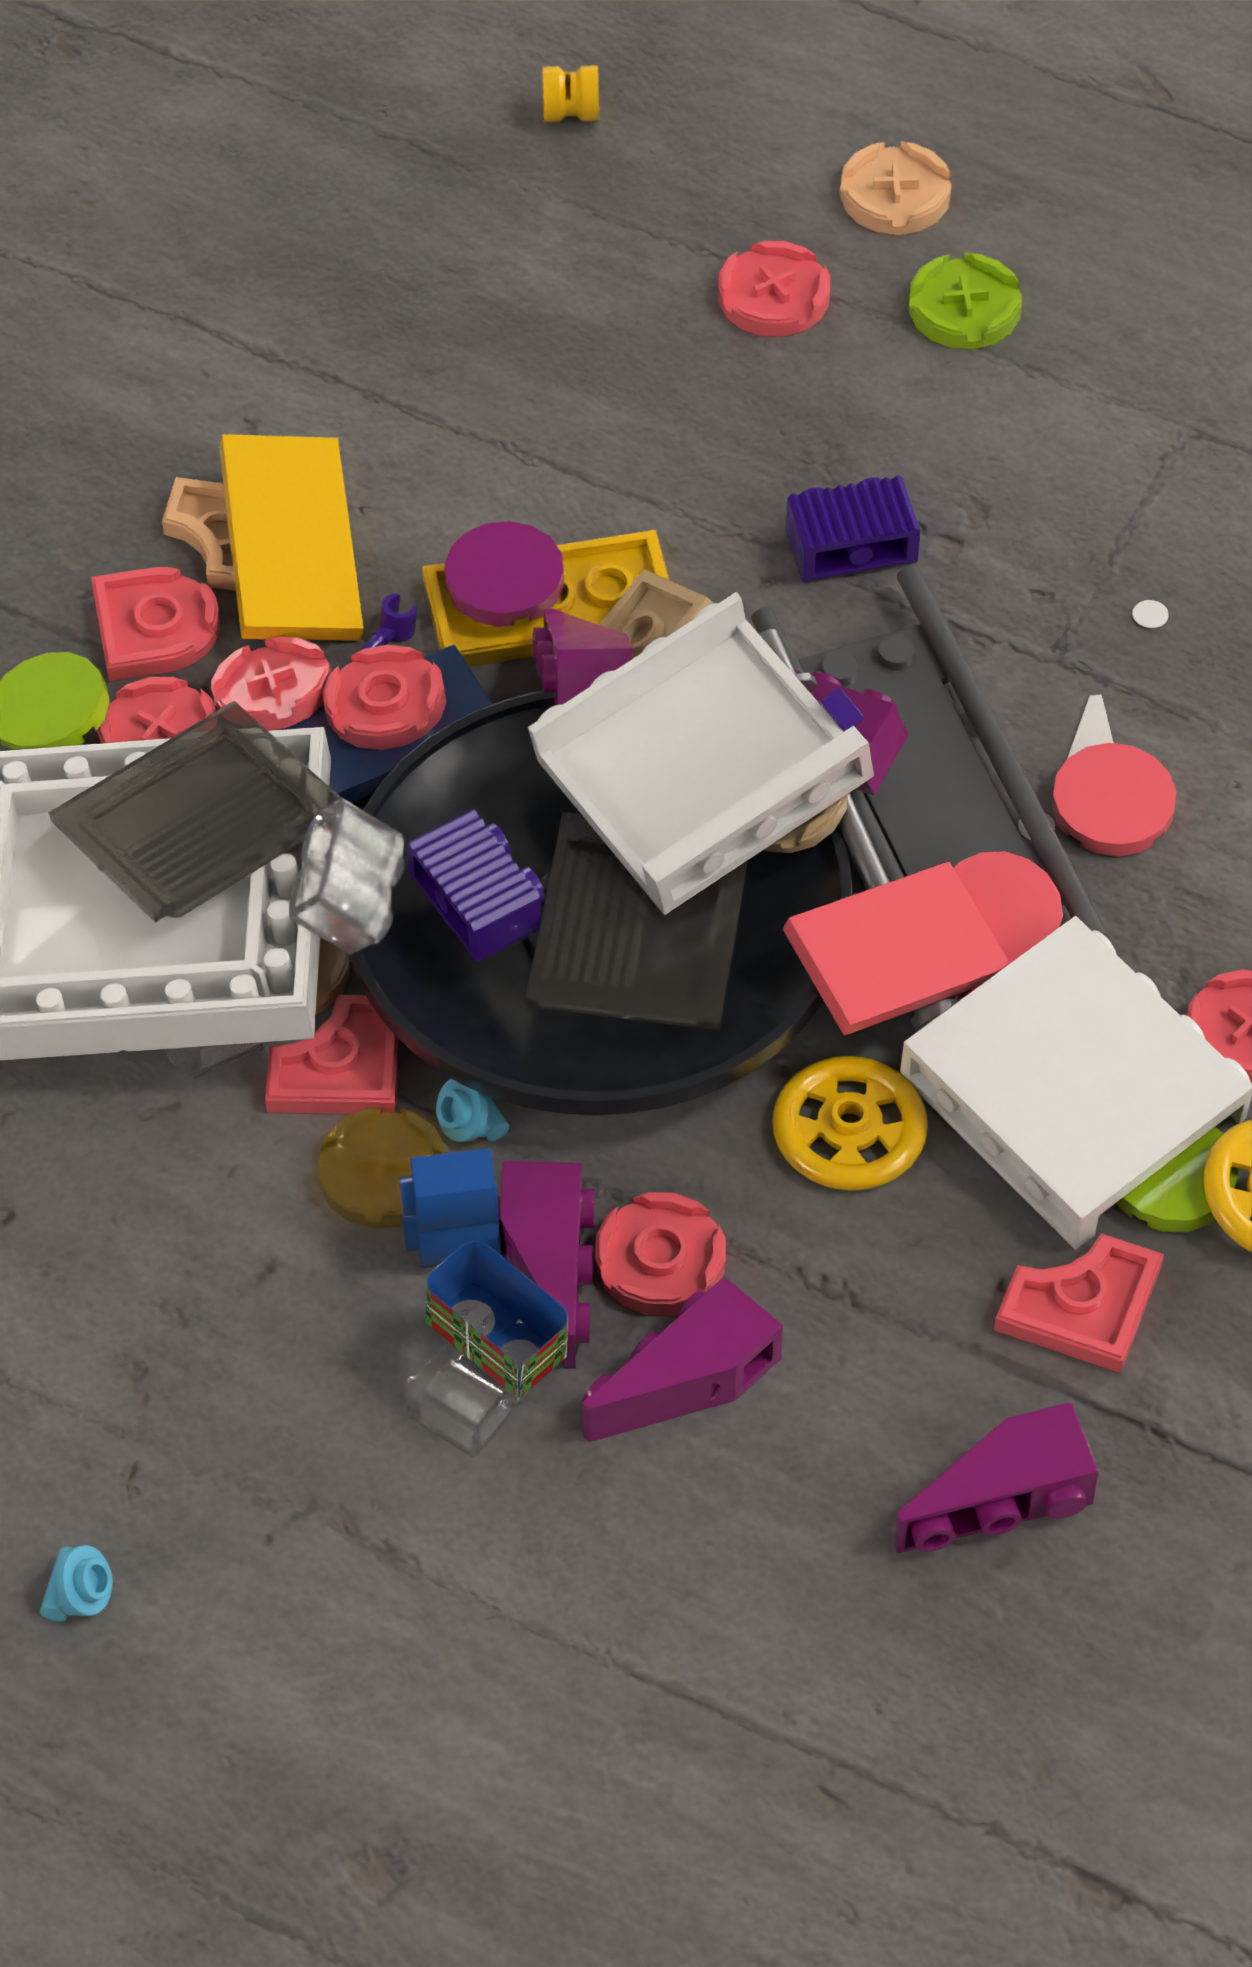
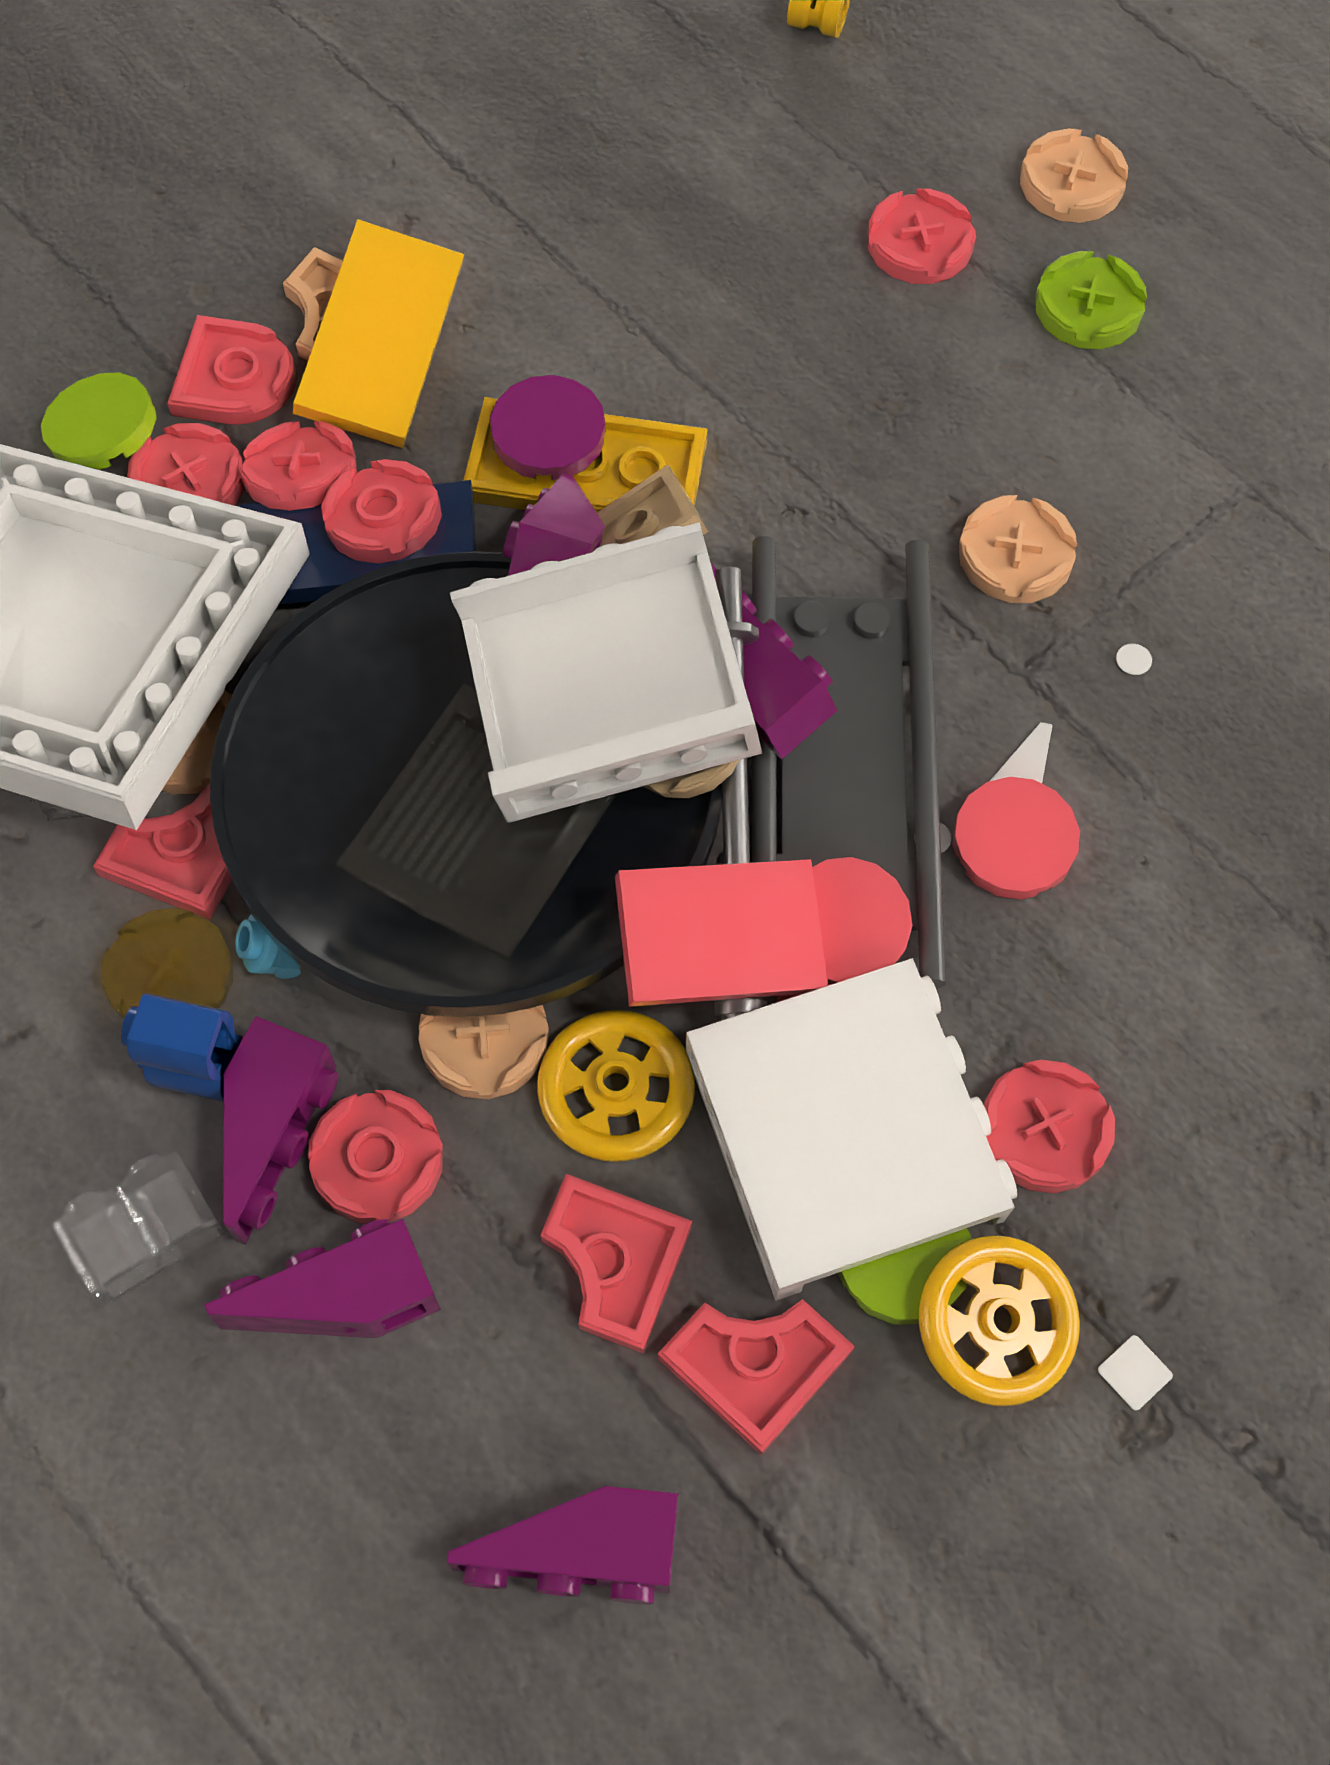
camera: 20 degrees right, 10 degrees up
(195, 813) = (136, 572): clear smoke piece -> none
(347, 877) = (227, 684): clear brick -> none
(393, 625) = (436, 443): dark purple hand -> none
(476, 884) = (345, 730): dark purple brick -> none
(485, 1276) = (117, 1140): blue piece -> none
(712, 1134) = (484, 1053): none -> light nougat tile
(842, 709) = (754, 677): dark purple piece -> none
(852, 528) = (885, 485): dark purple brick -> none
(920, 1256) = (621, 1255): none -> coral tile
(999, 549) = (1017, 549): none -> light nougat tile

